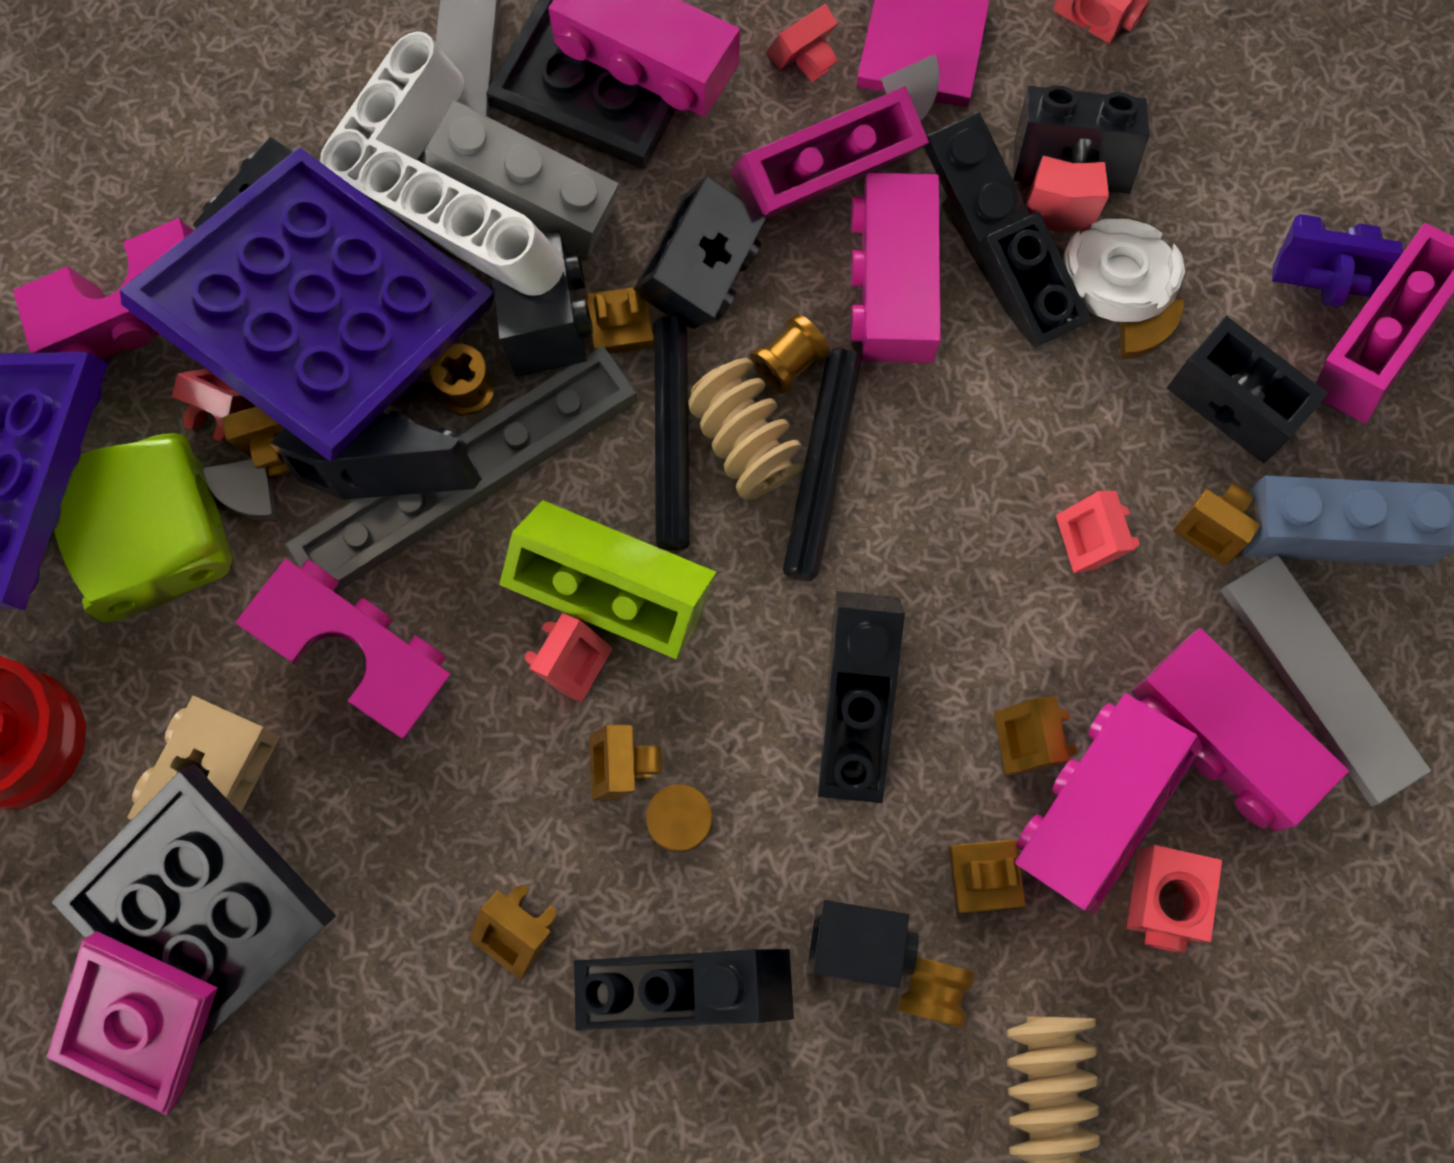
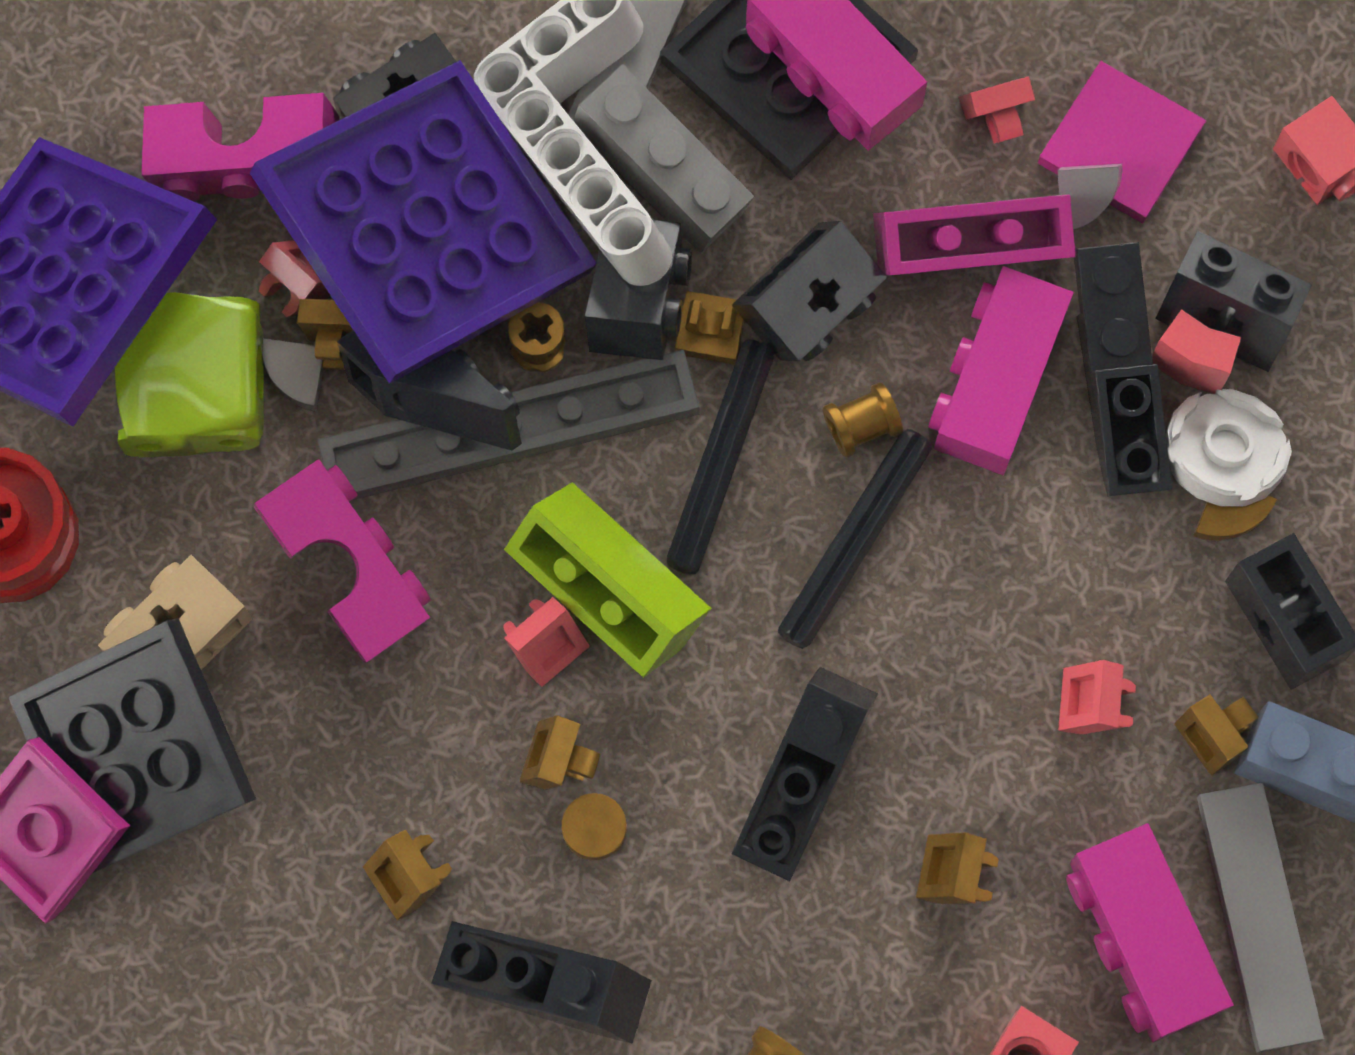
camera: 20 degrees right, 0 degrees up
(742, 429) = (787, 480): tan piece -> none
(862, 944) = (714, 995): black brick -> none
(986, 876) = (860, 983): pearl gold tile -> none
(1107, 801) = (993, 953): dark pink brick -> none

